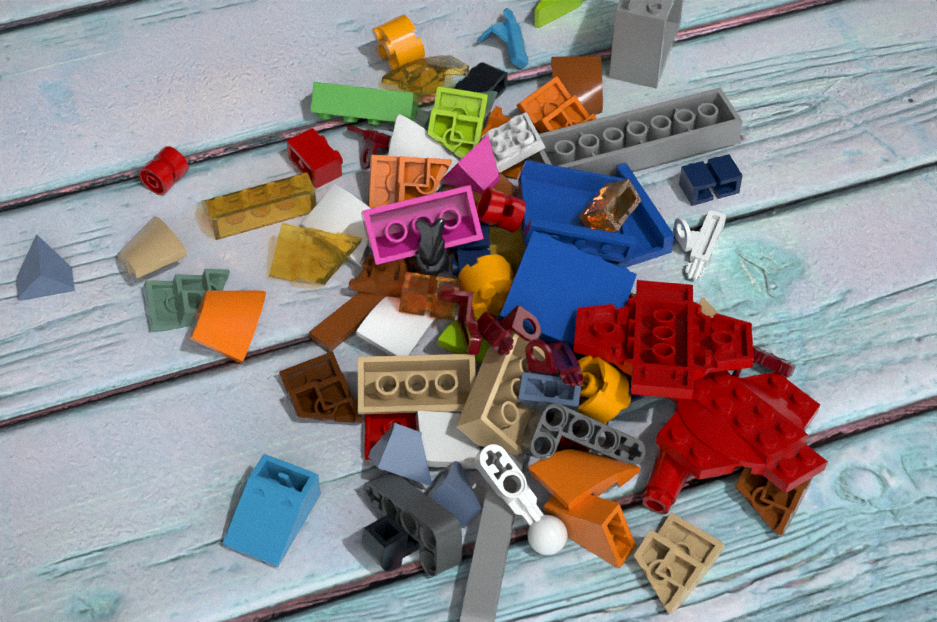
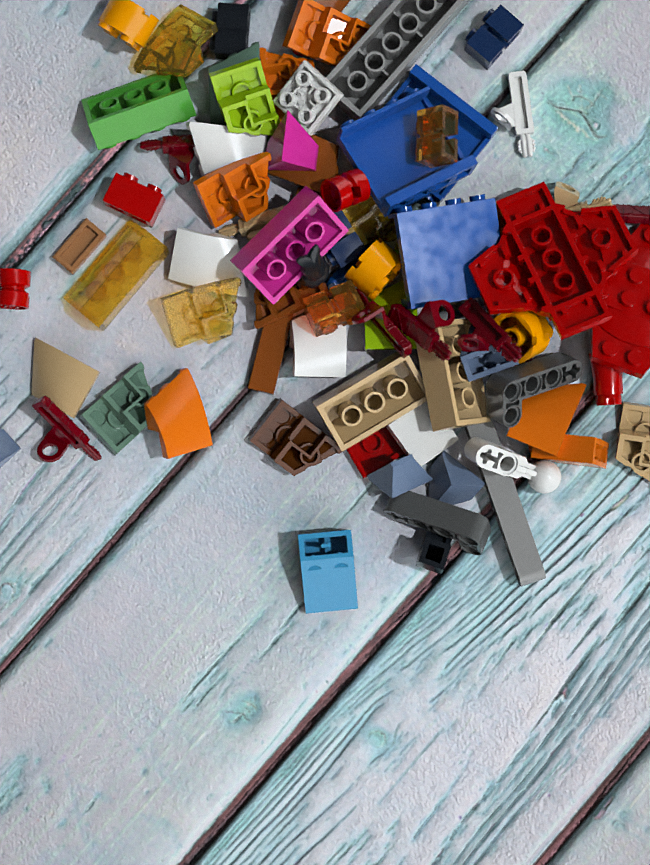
camera: 30 degrees left, 35 degrees up
(120, 287) = (63, 432): none -> dark red piece
(244, 173) = (79, 246): none -> medium nougat tile

